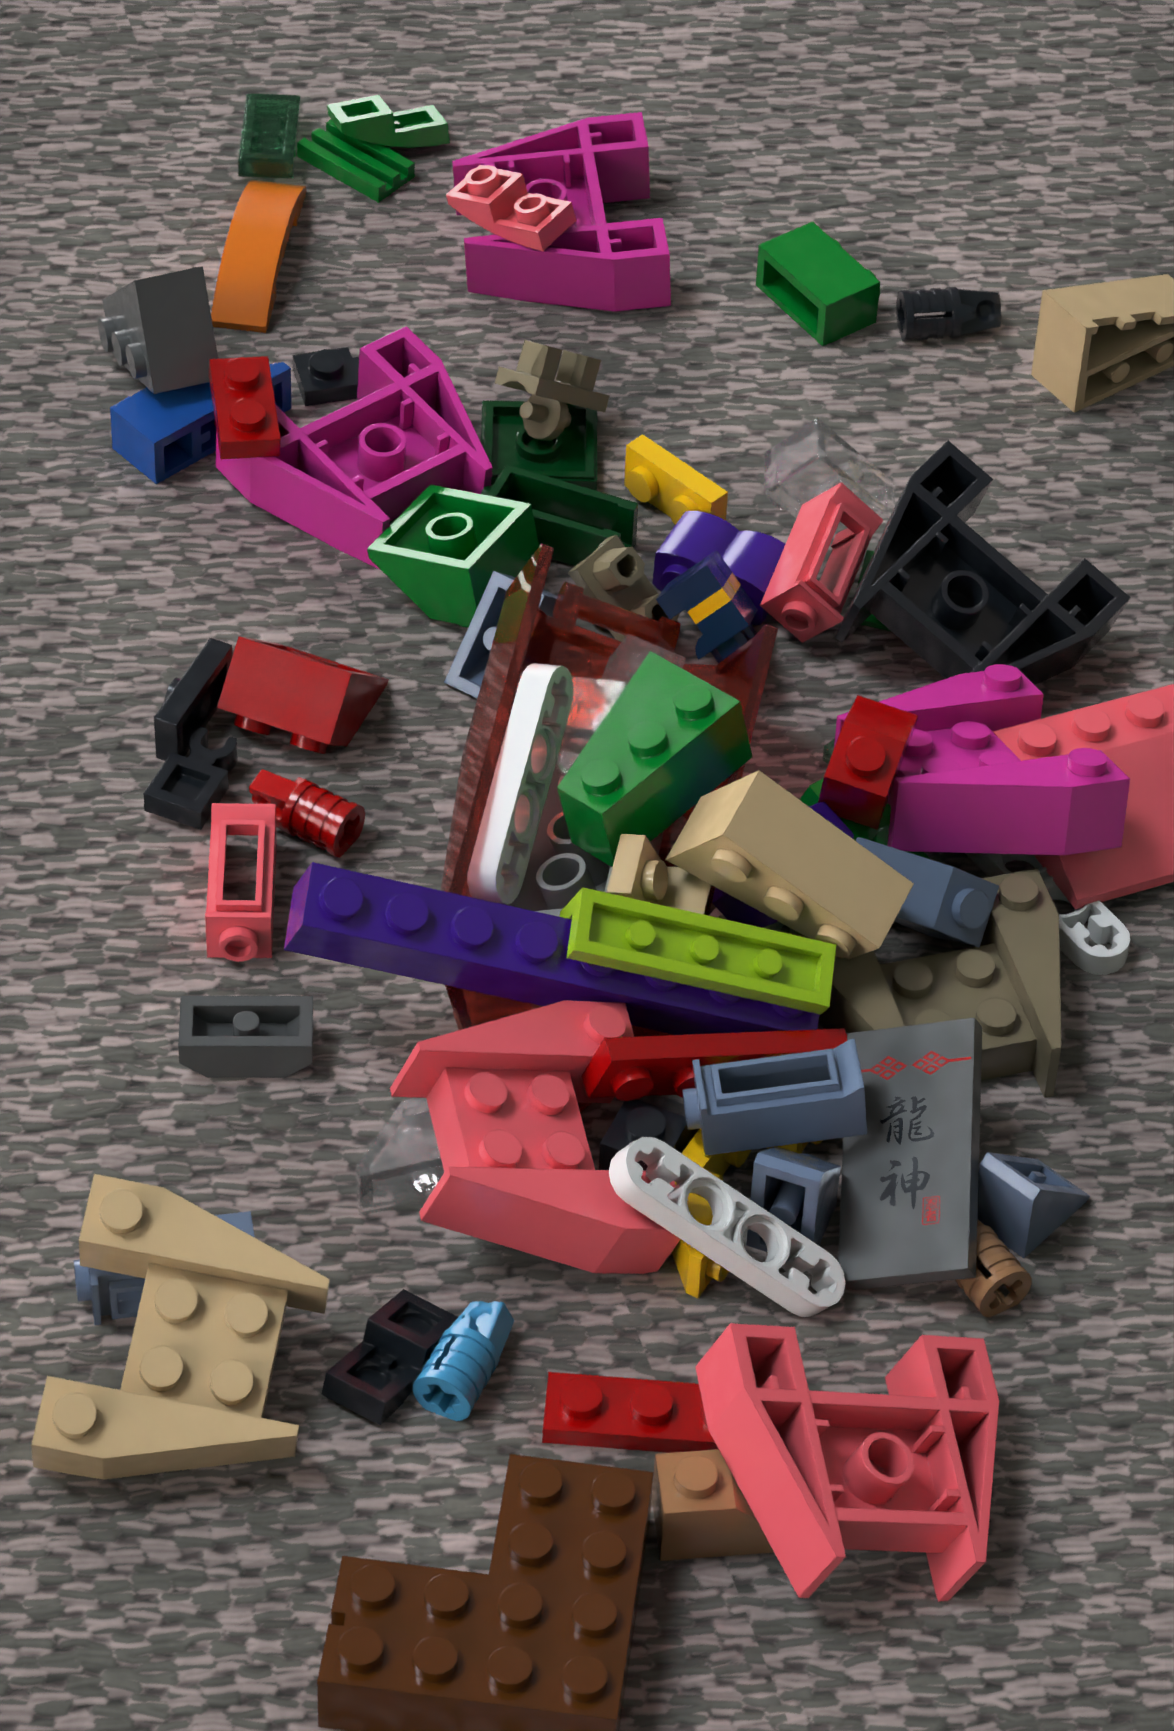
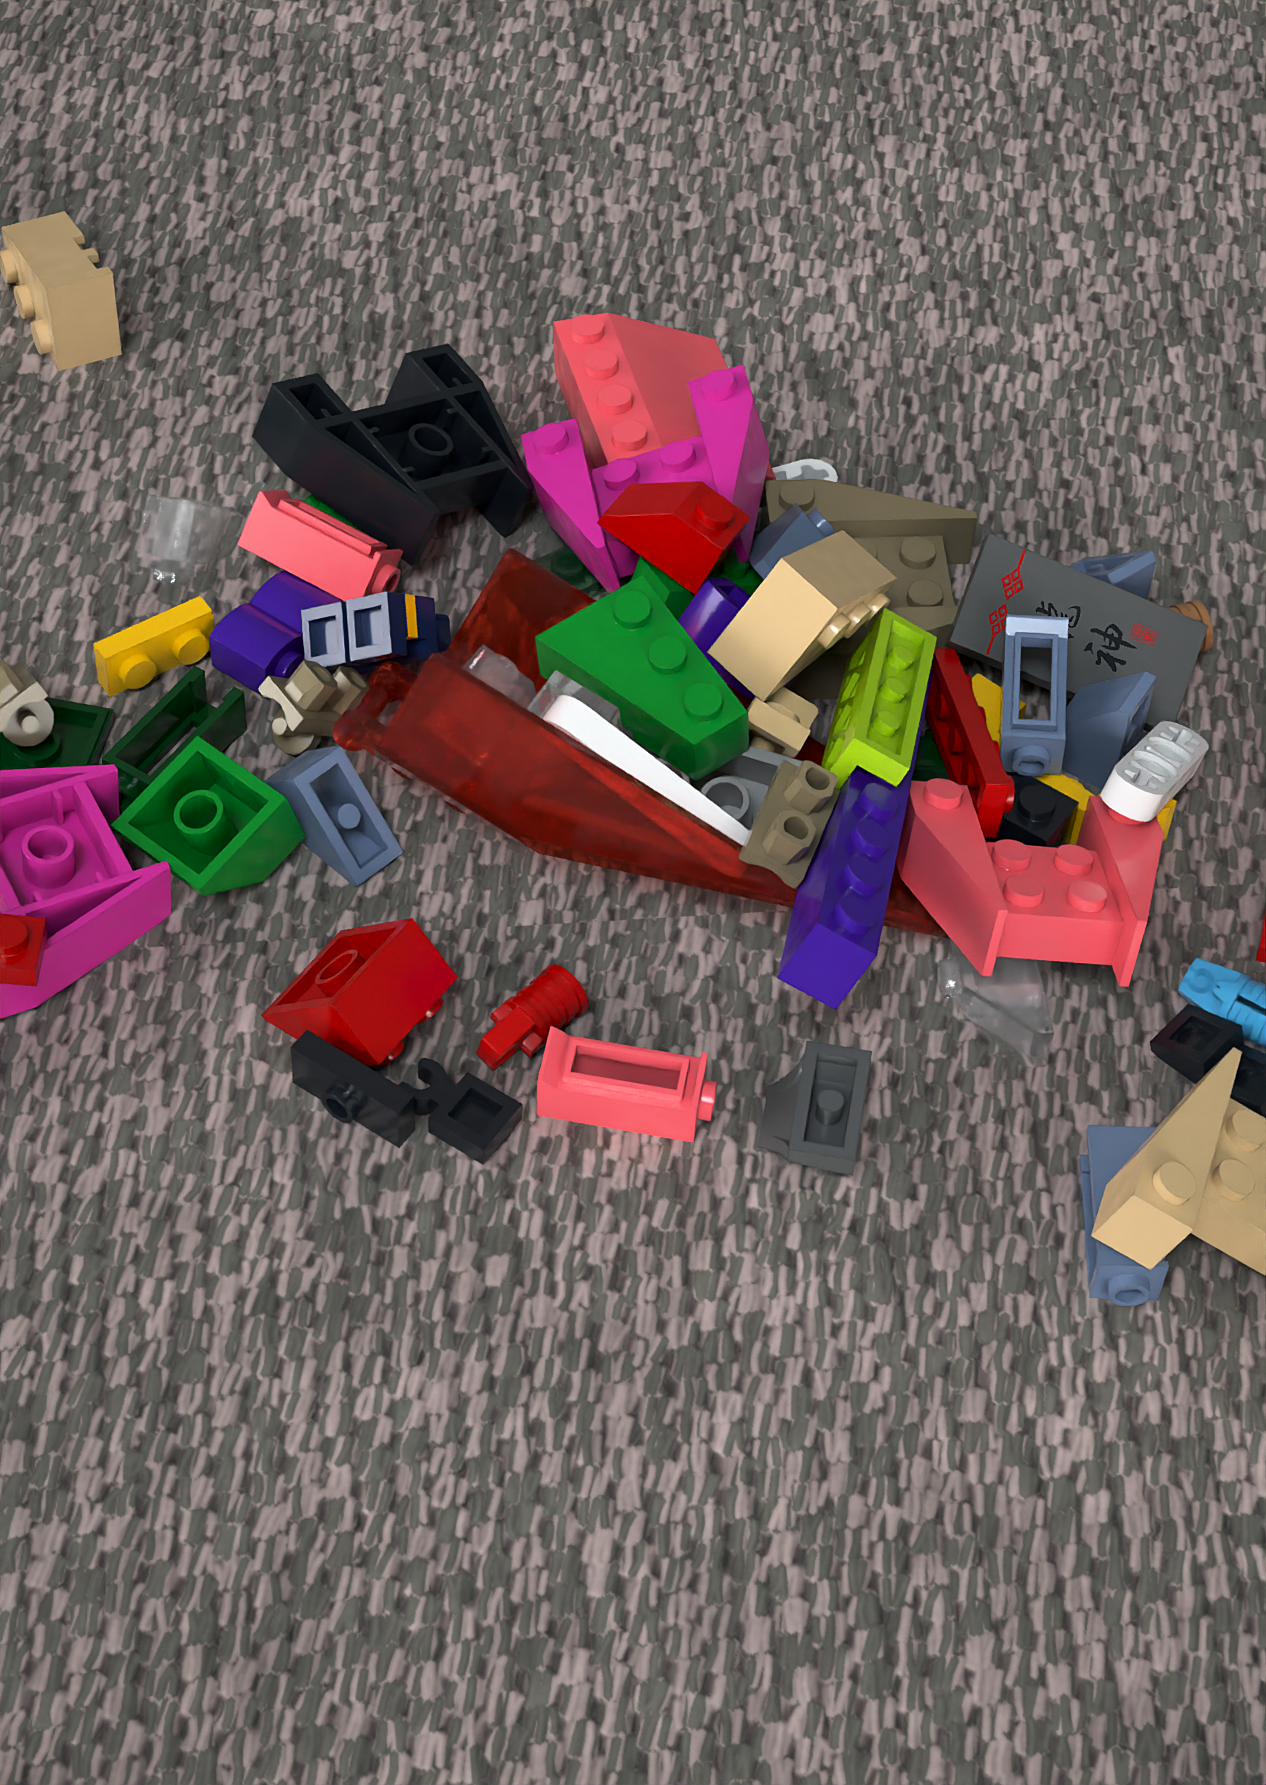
camera: 80 degrees left, 5 degrees up
(504, 879) = (791, 820): none -> dark tan hips

